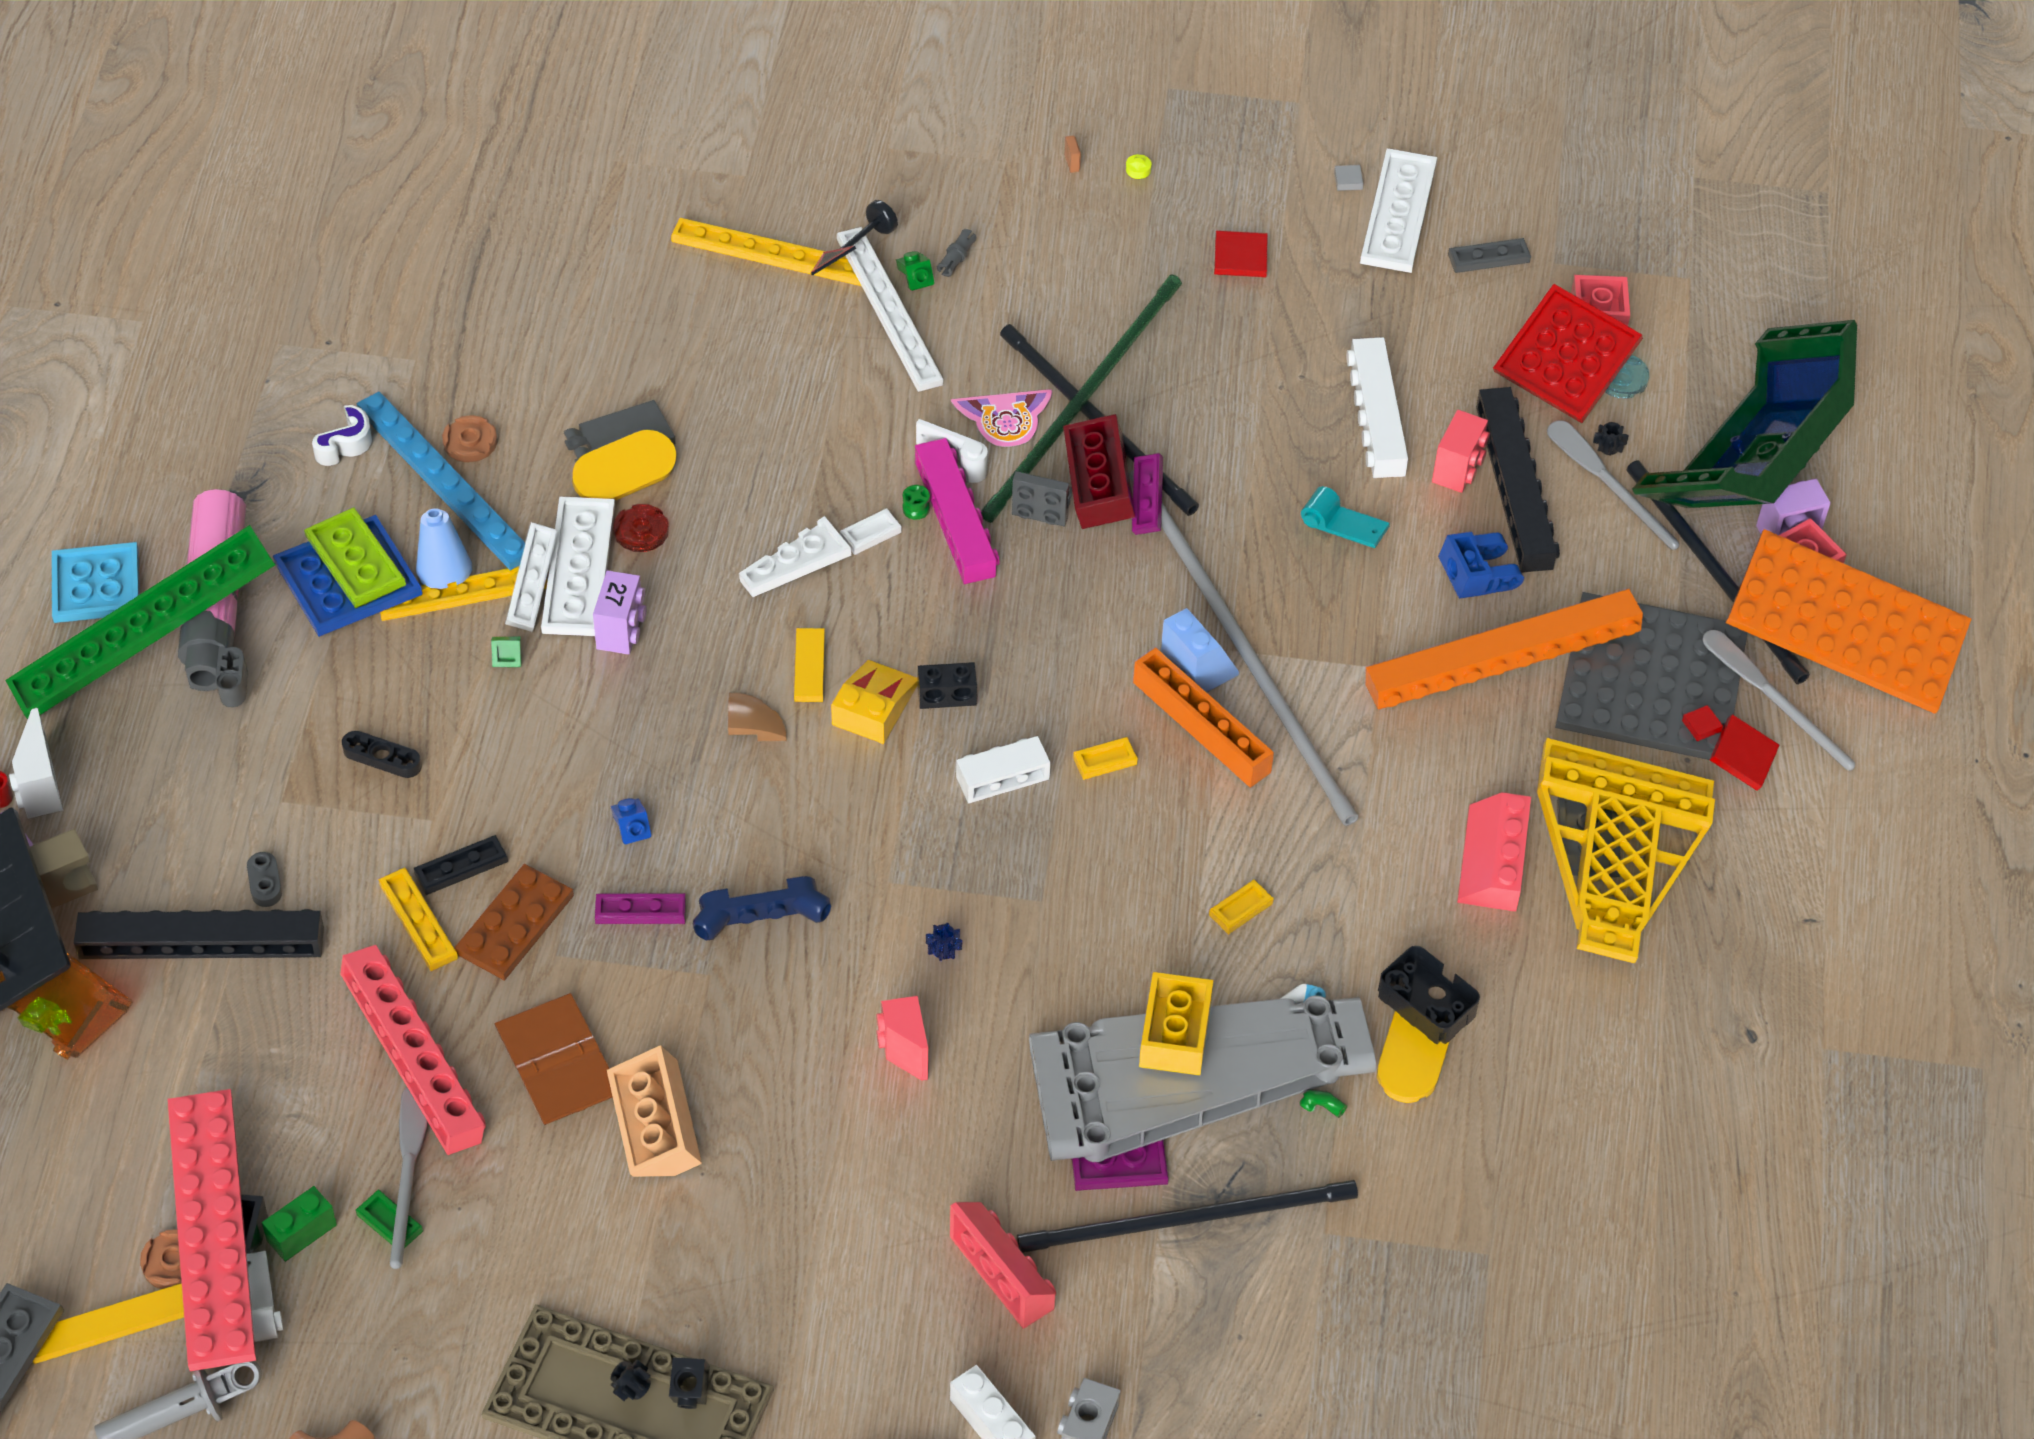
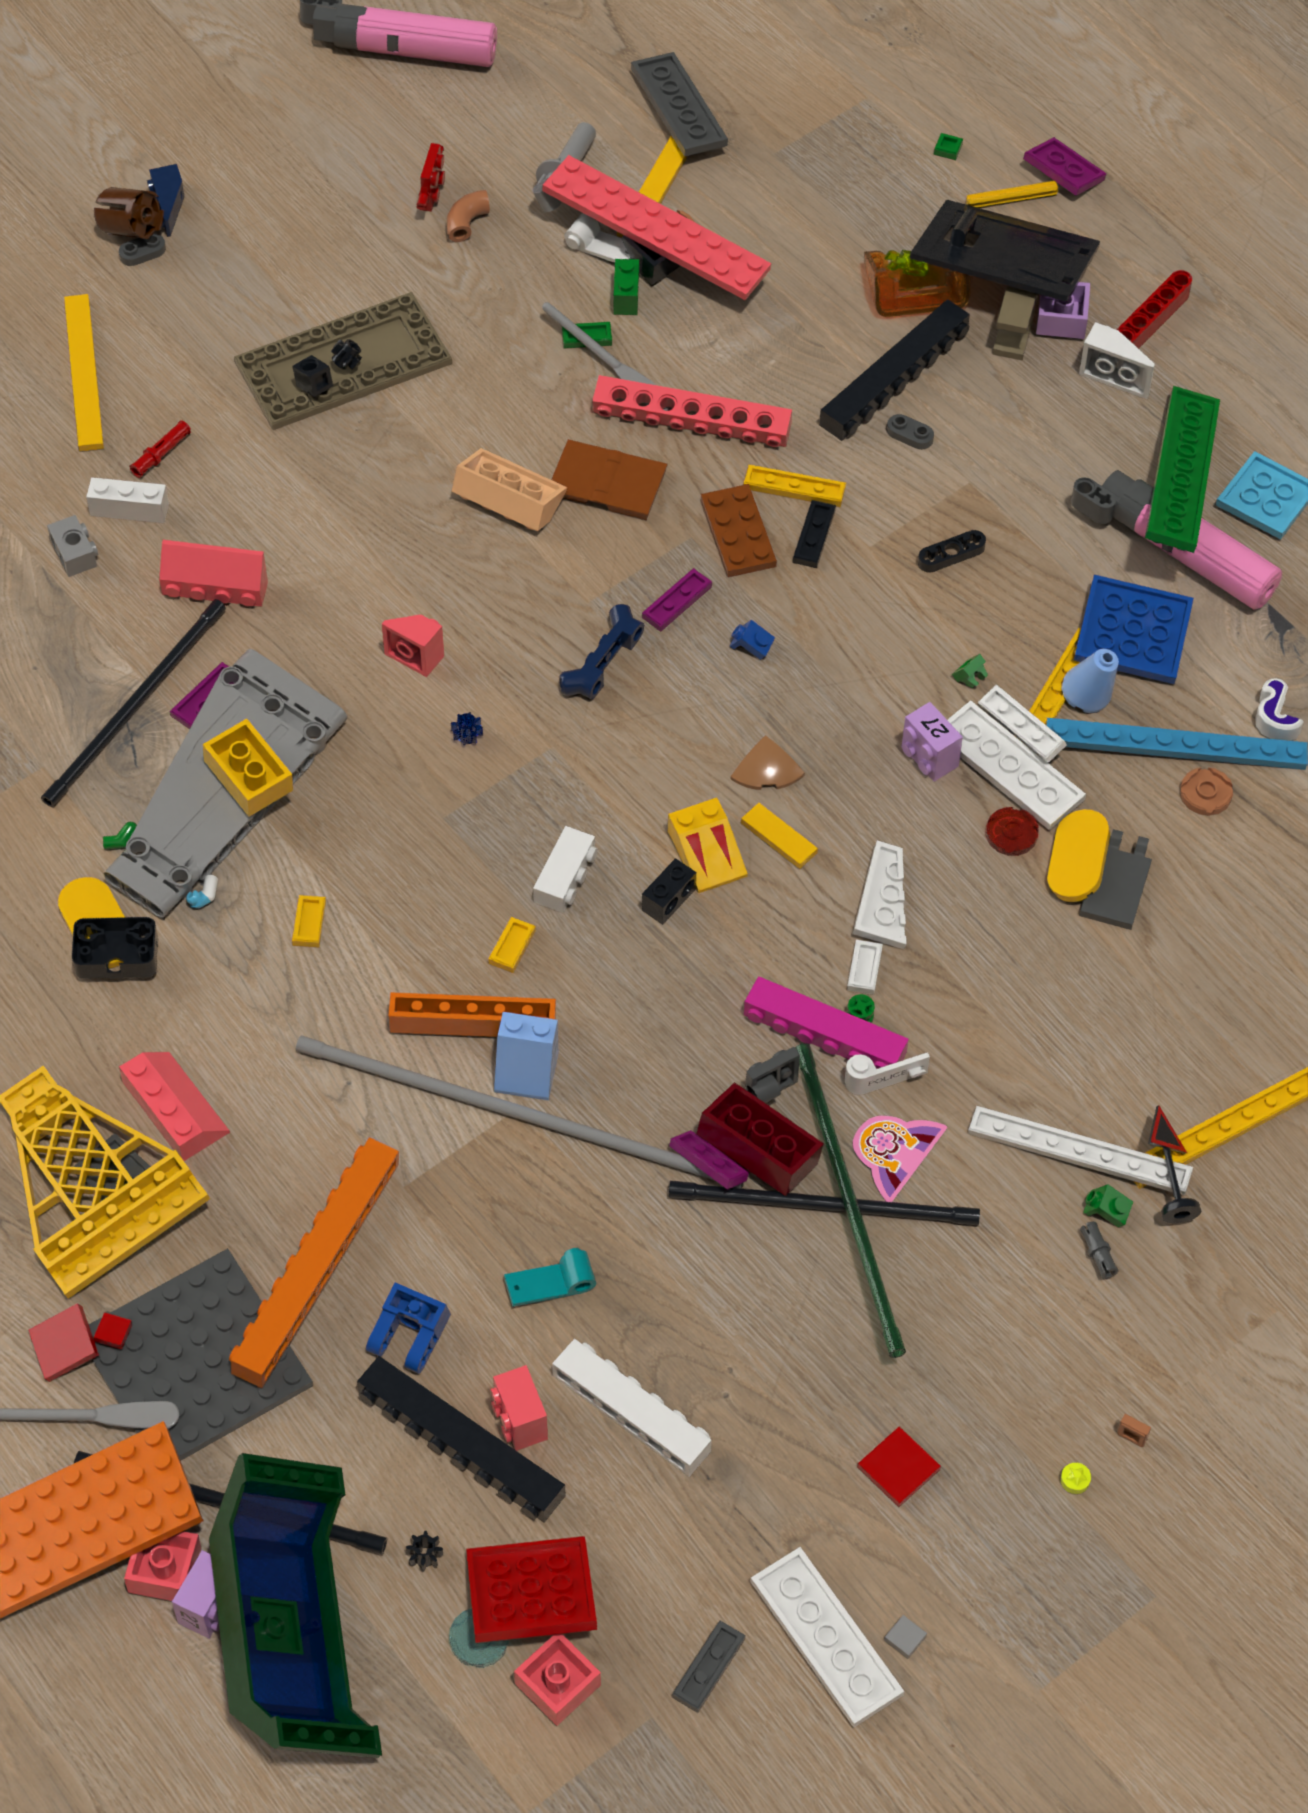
camera: 135 degrees right, 5 degrees up
(354, 557) = (1142, 635): lime tile -> none
(1577, 448) = (442, 1524): light grey piece -> none

